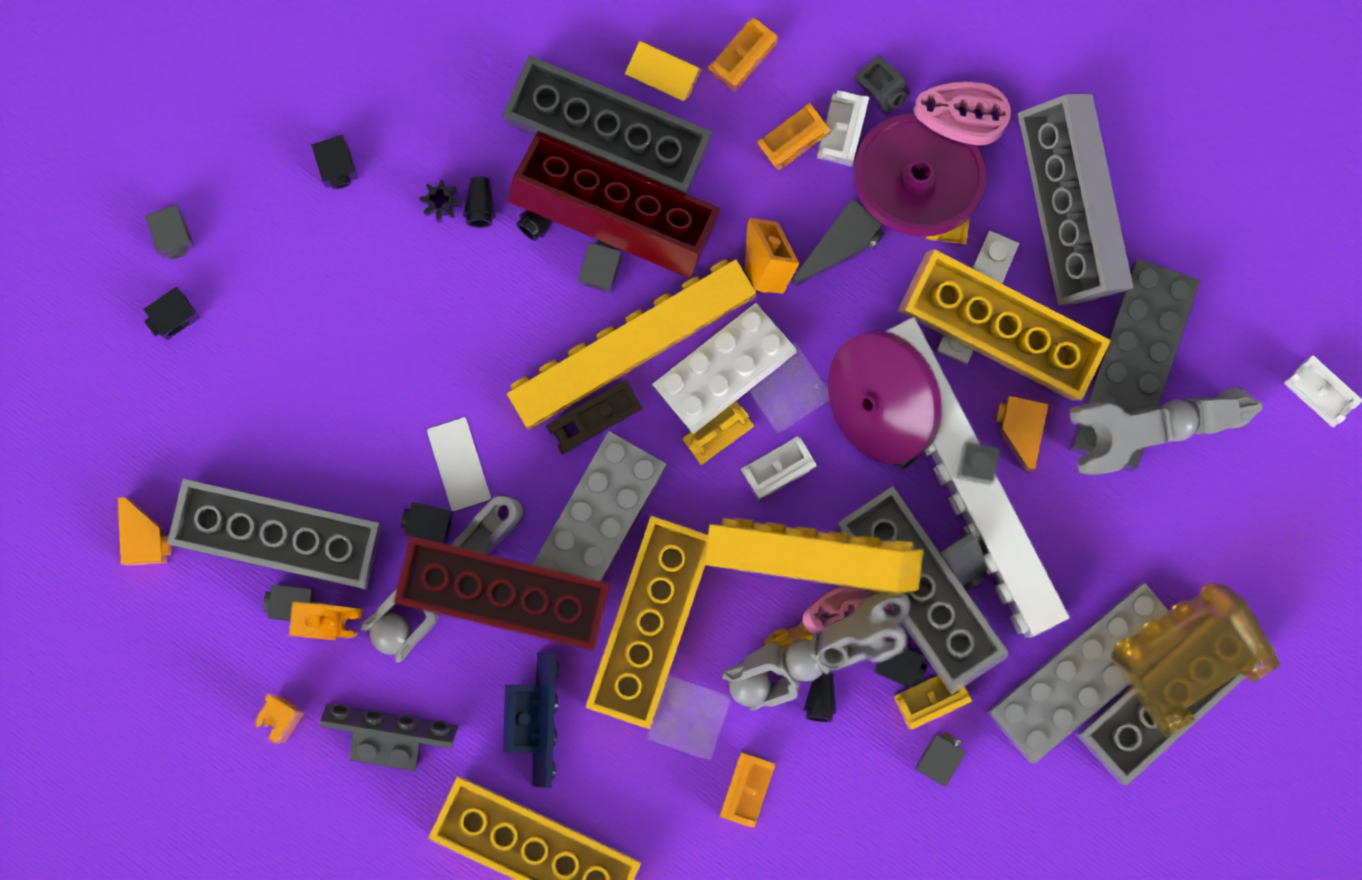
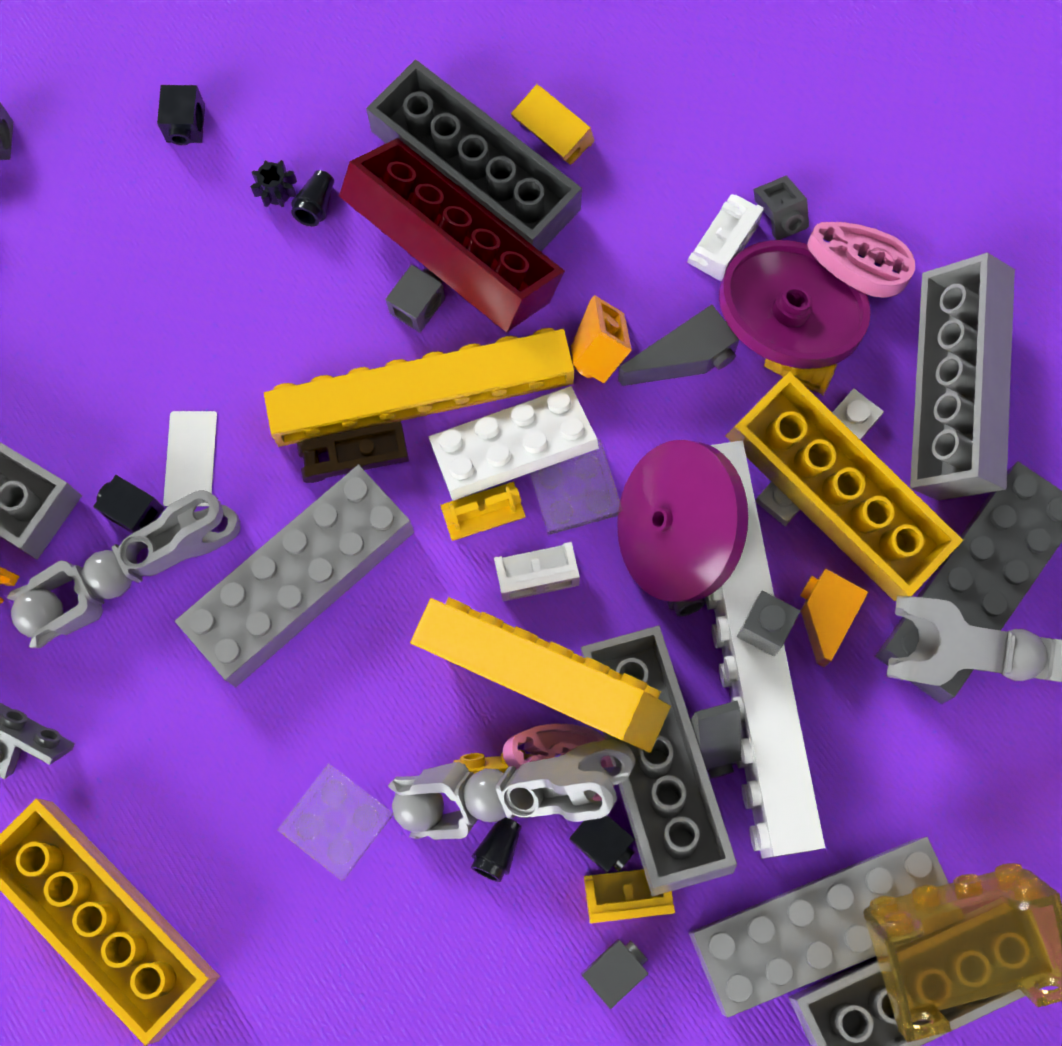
camera: 20 degrees right, 10 degrees down
(502, 593) = (164, 598): dark red brick -> none
(530, 719) = (152, 762): dark blue bracket -> none
(533, 225) = (363, 235): black cone -> none
(649, 623) = (325, 696): yellow brick -> none
(743, 54) = (644, 137): light orange hinge -> none
(747, 790) = (372, 932): light orange hinge -> none
(794, 137) = (670, 231): light orange hinge -> none

